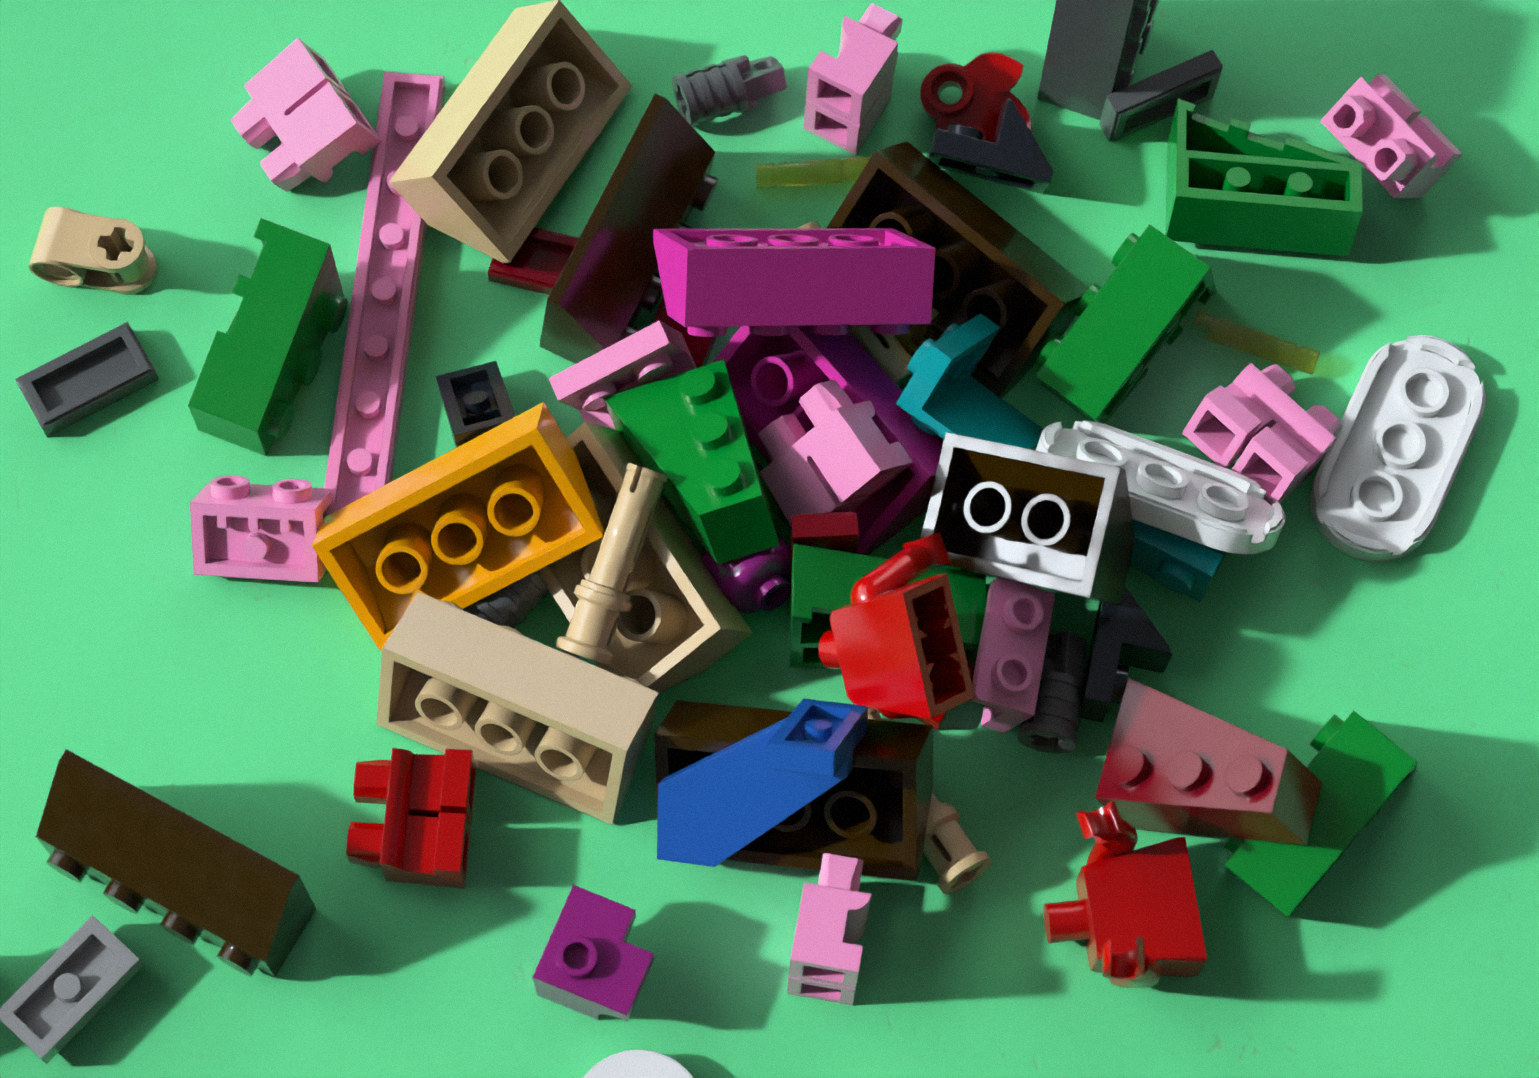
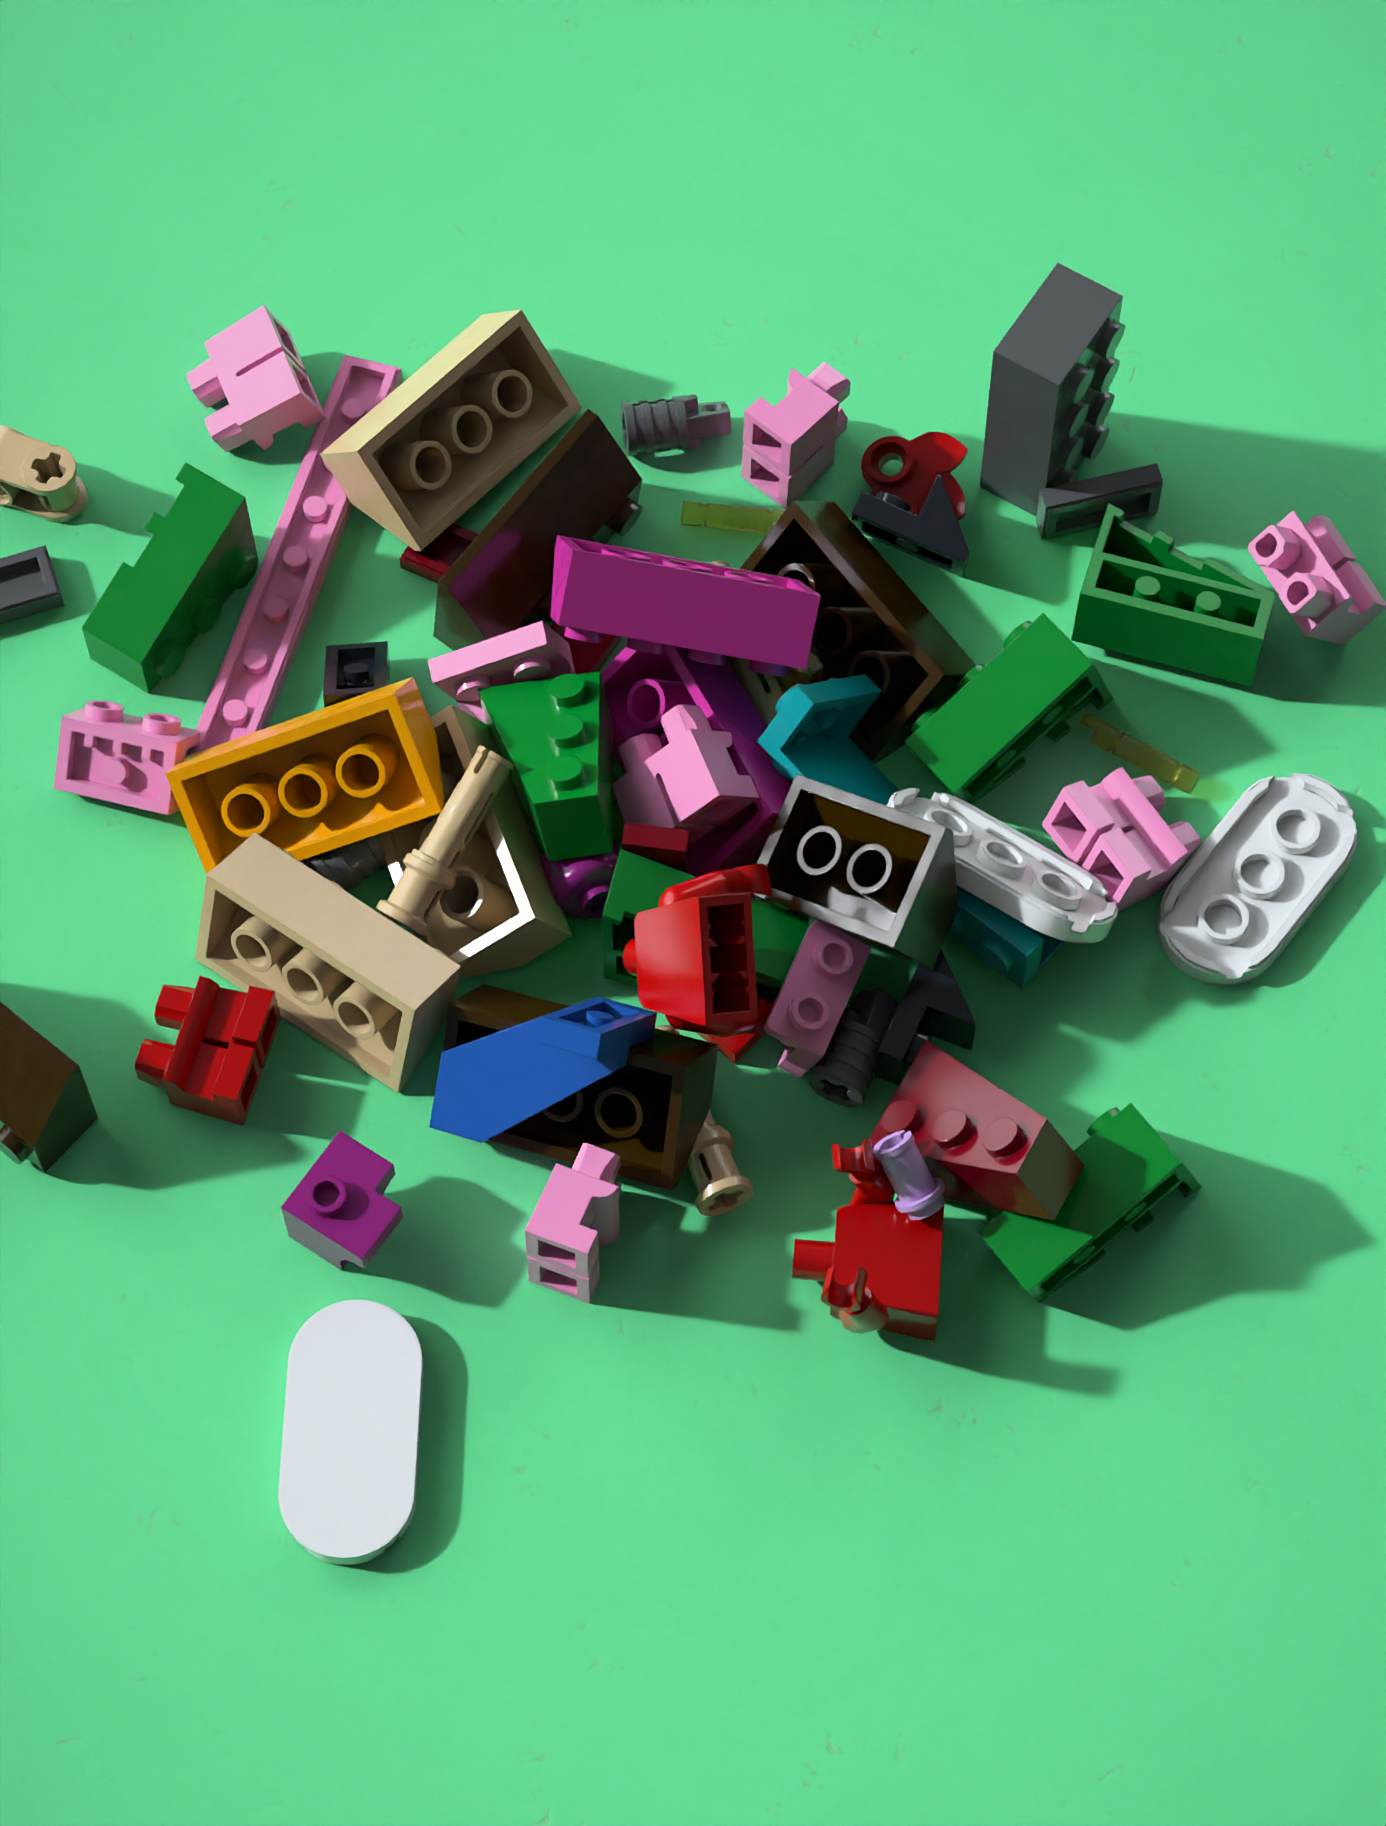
camera: 15 degrees right, 5 degrees down
(1162, 837) = (908, 1173): none -> lavender pin

